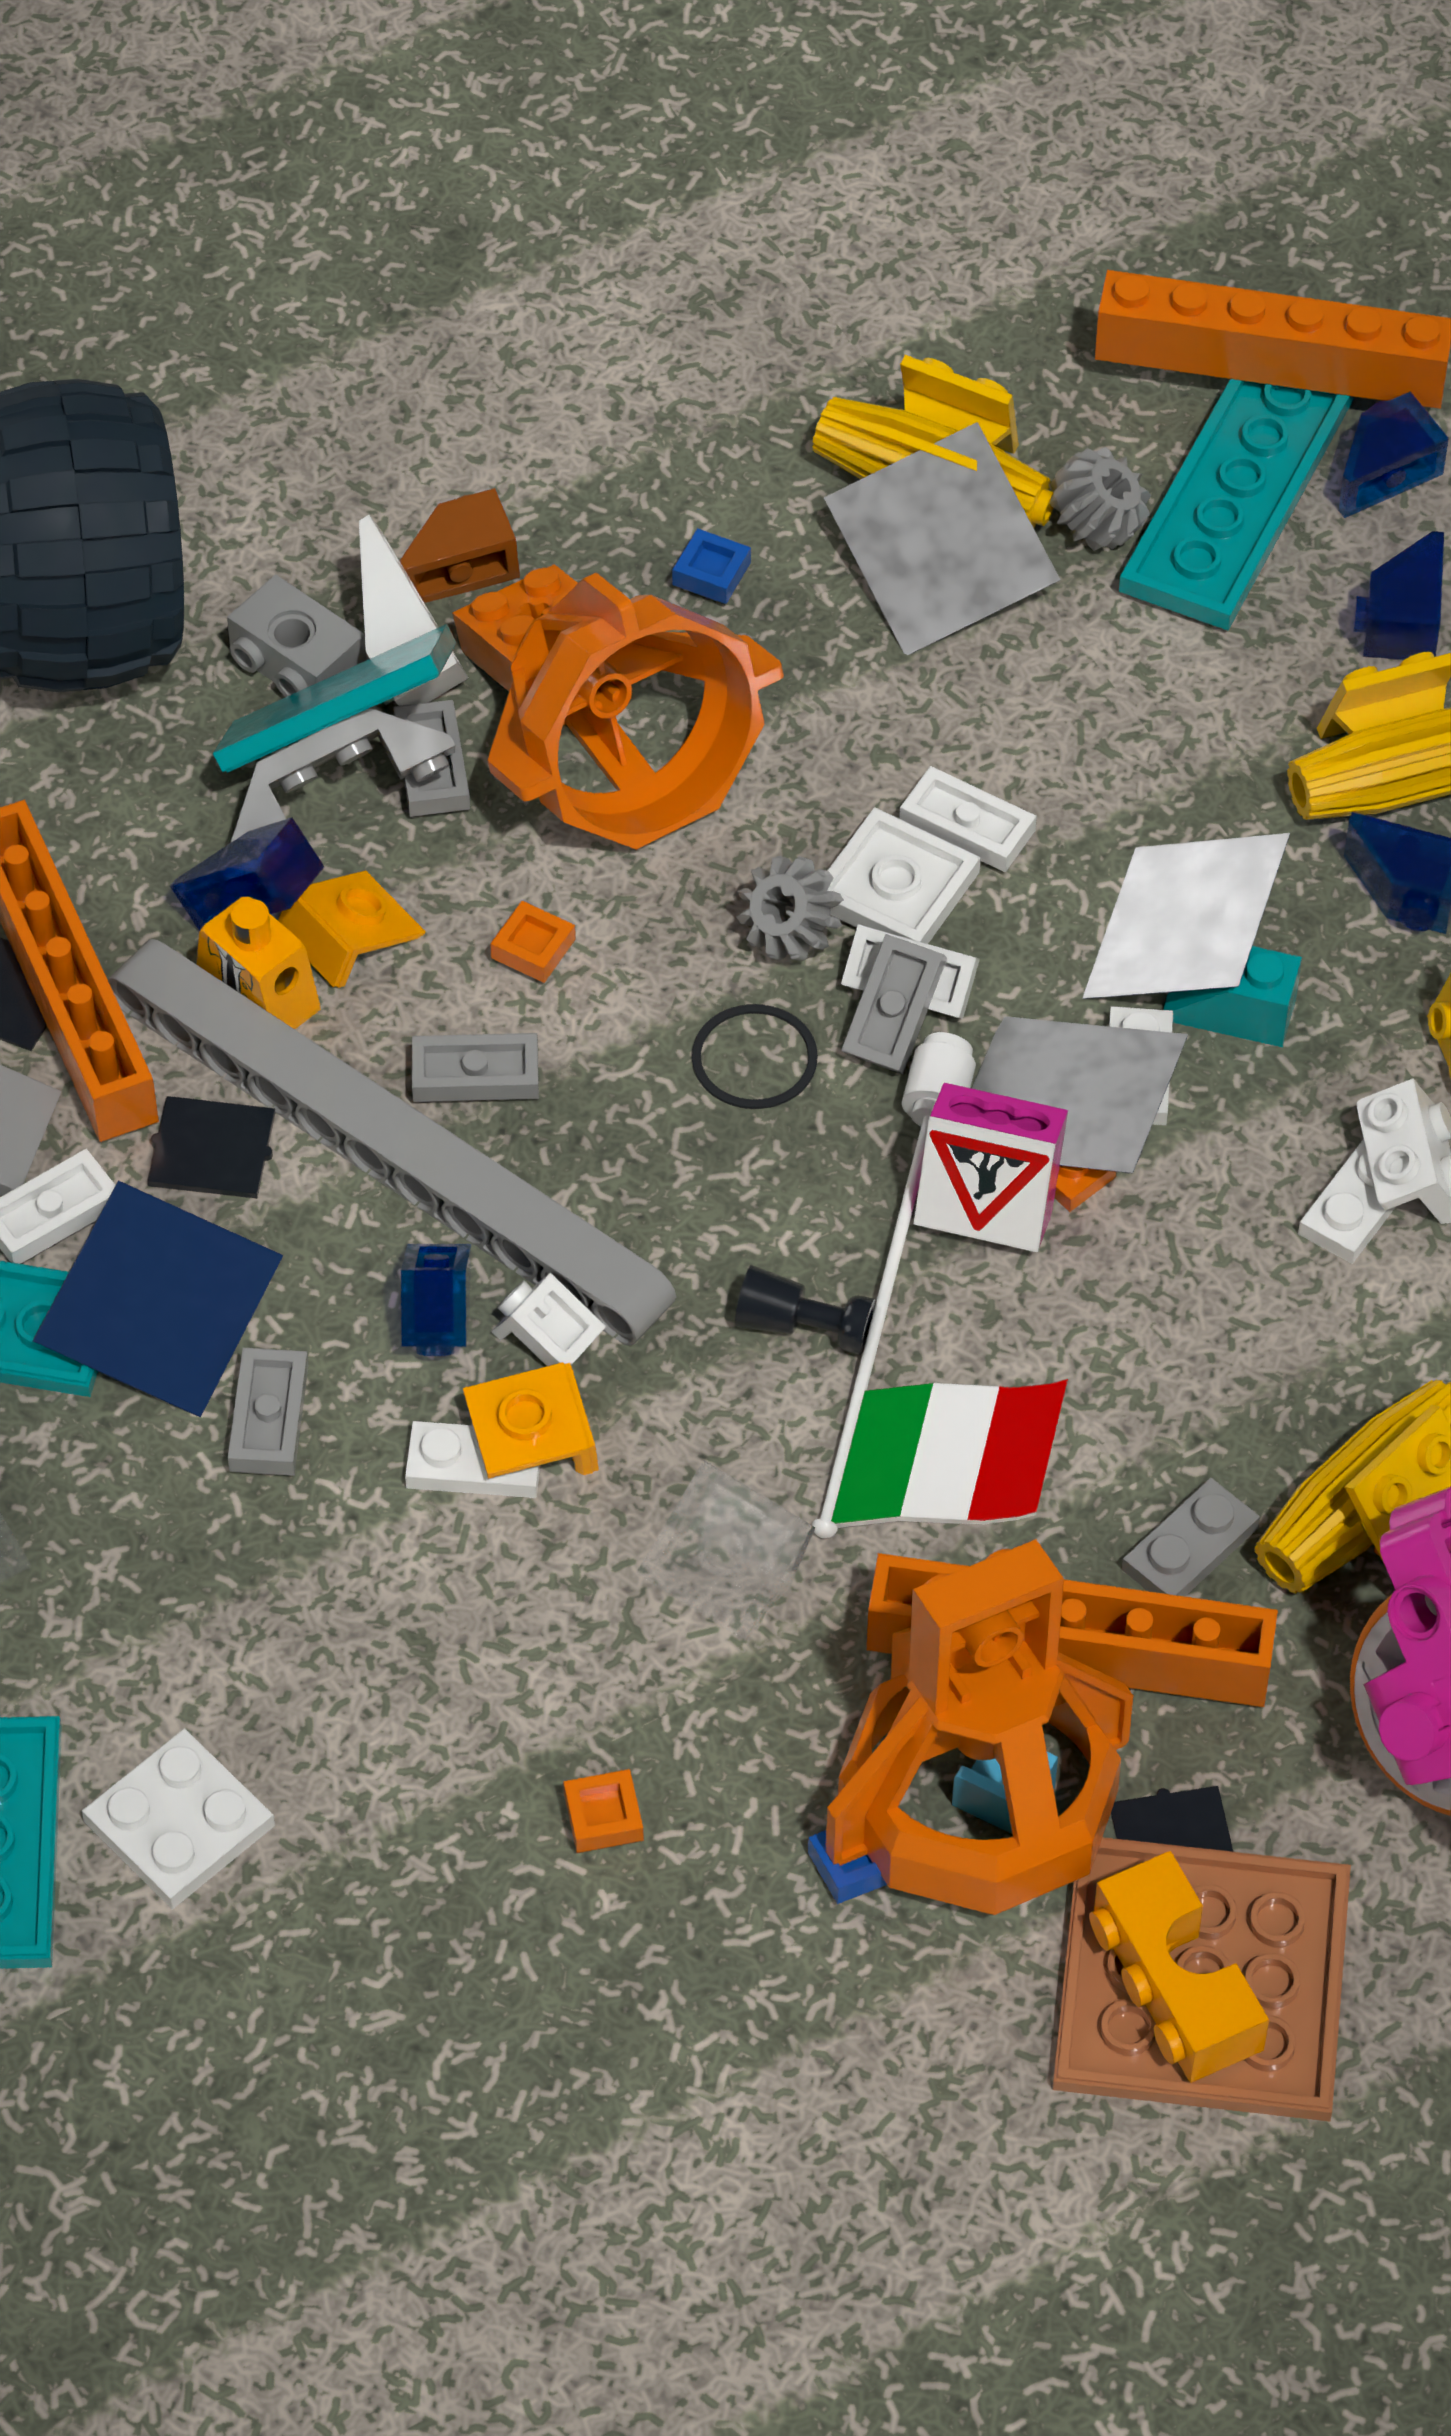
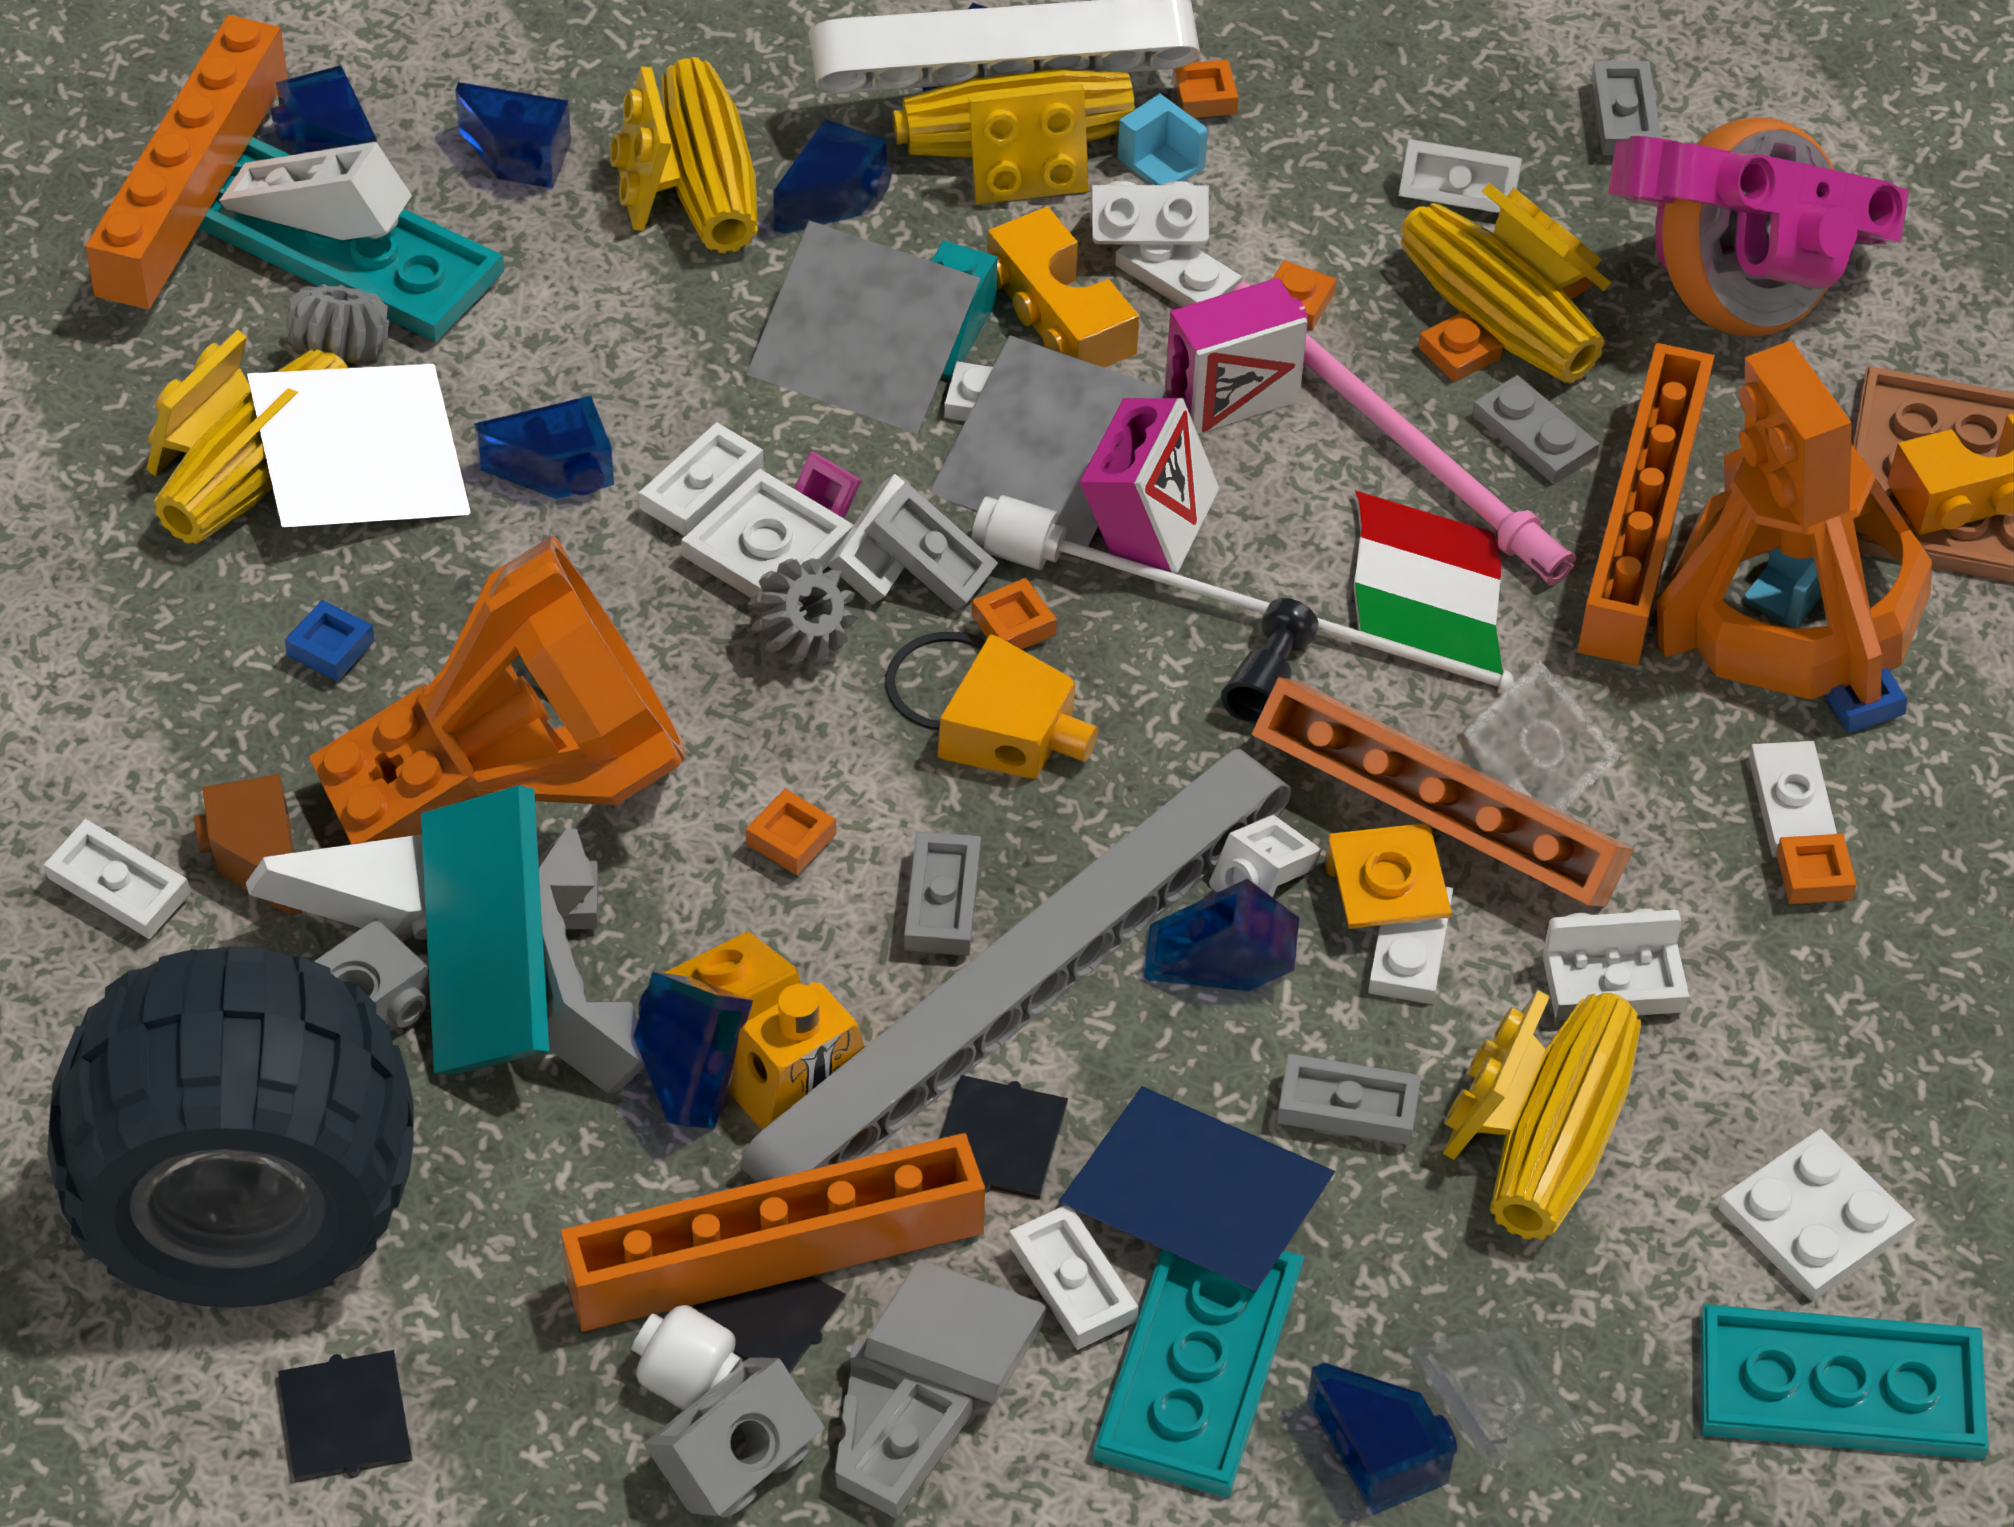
camera: 85 degrees left, 5 degrees down
(261, 1565) = (1549, 1104): none -> yellow plate
(411, 463) = (117, 878): none -> white plate
(444, 1628) = (1617, 955): none -> white bracket
(636, 1458) = (1443, 792): none -> orange brick
(699, 1097) = (1013, 714): none -> light orange torso
(705, 1796) = (1790, 791): none -> white plate
(830, 1091) = (1015, 615): none -> orange plate
(971, 921) = (827, 484): none -> dark pink slope
(979, 696) = (548, 449): none -> clear blue slope
(1196, 1232) = (1237, 354): none -> piece
(1253, 450) = (325, 192): none -> white slope
(1282, 1292) = (1517, 531): none -> bright pink bar
(1293, 1459) = (1460, 346): none -> orange plate
(1319, 1056) = (1034, 268): none -> light orange arch
(1347, 1311) = (1309, 286): none -> orange plate

